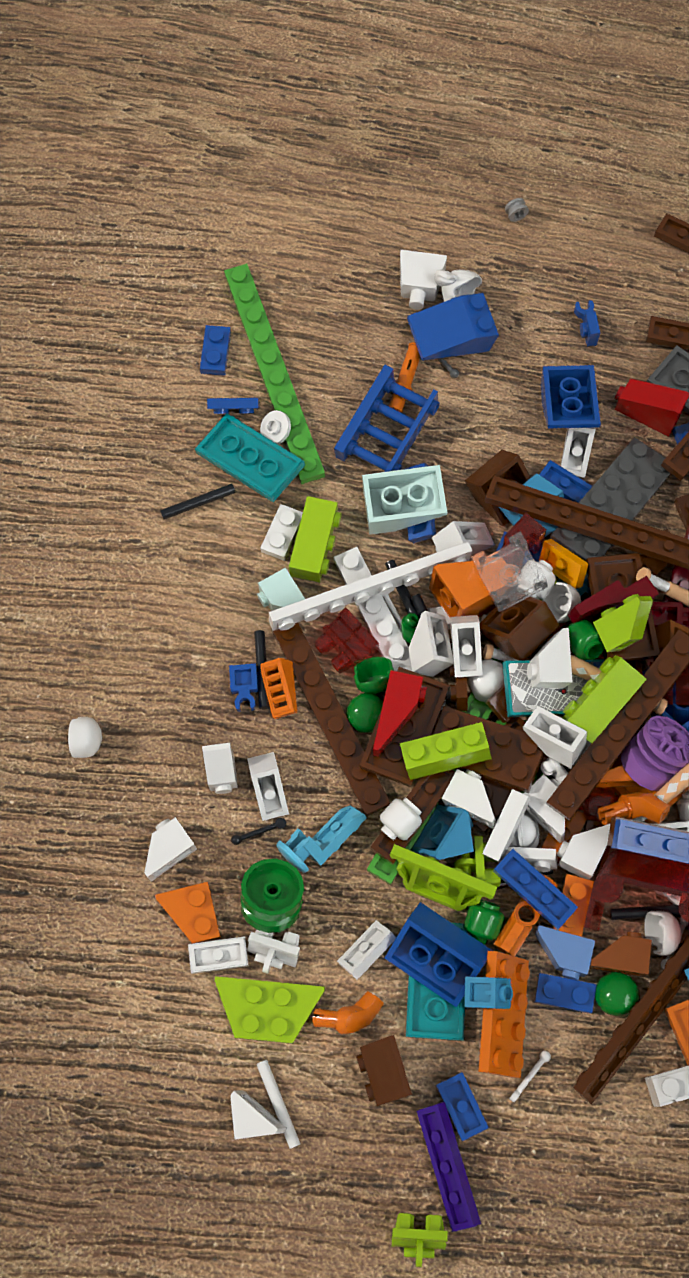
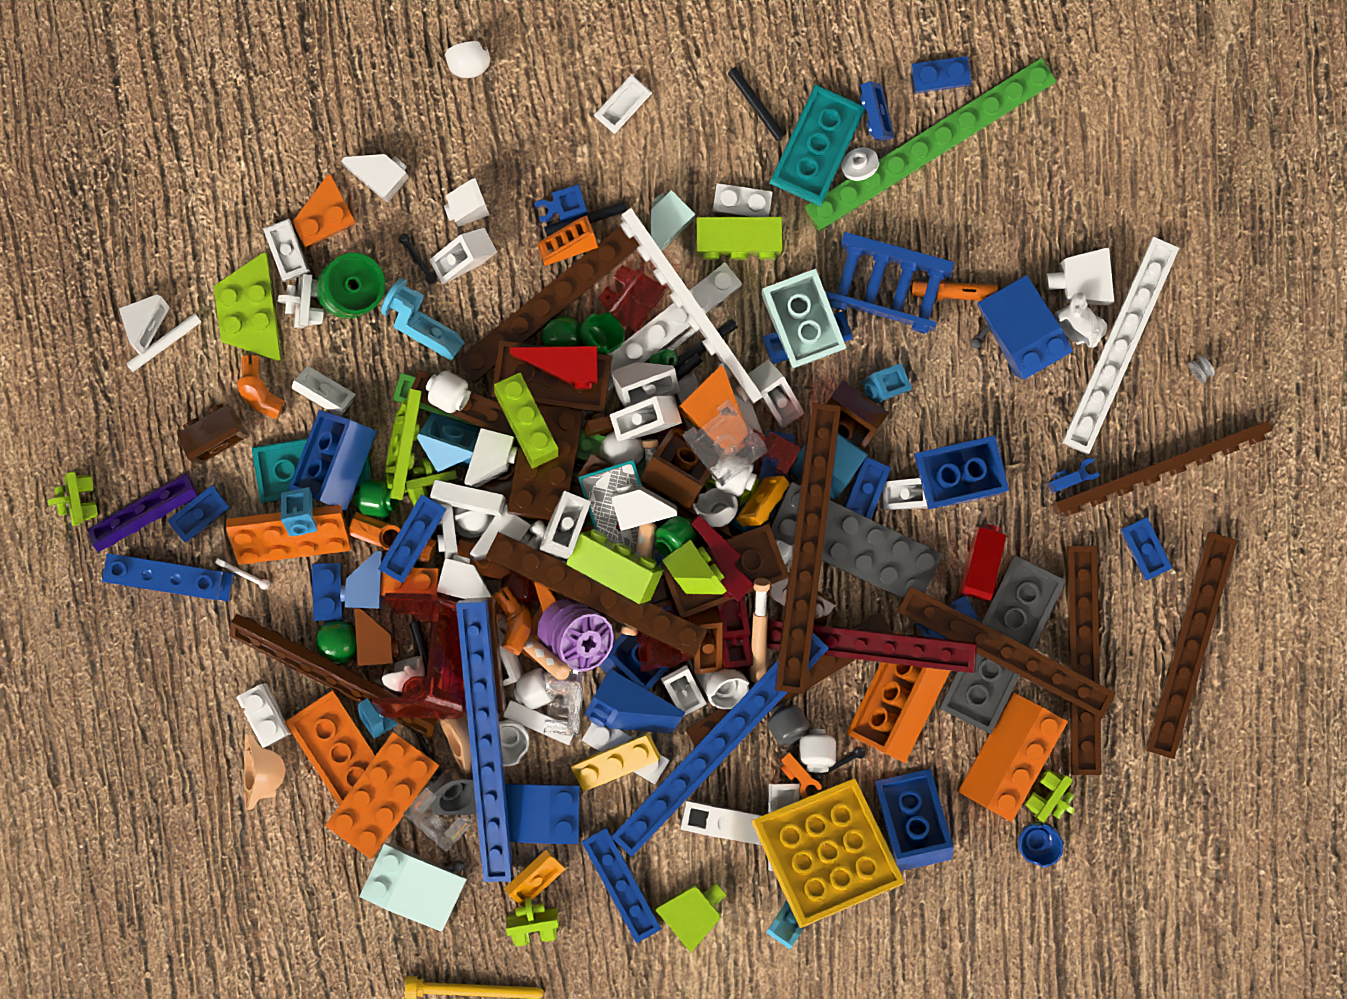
camera: 75 degrees right, 15 degrees up
(165, 612) = (623, 104): none -> white tile
(475, 449) = (886, 383): none -> dark azure bracket
(482, 262) = (1120, 345): none -> white plate
(525, 1149) = (168, 577): none -> blue fence
(596, 262) = (1174, 465): none -> reddish brown plate
(660, 282) = (1146, 549): none -> blue plate

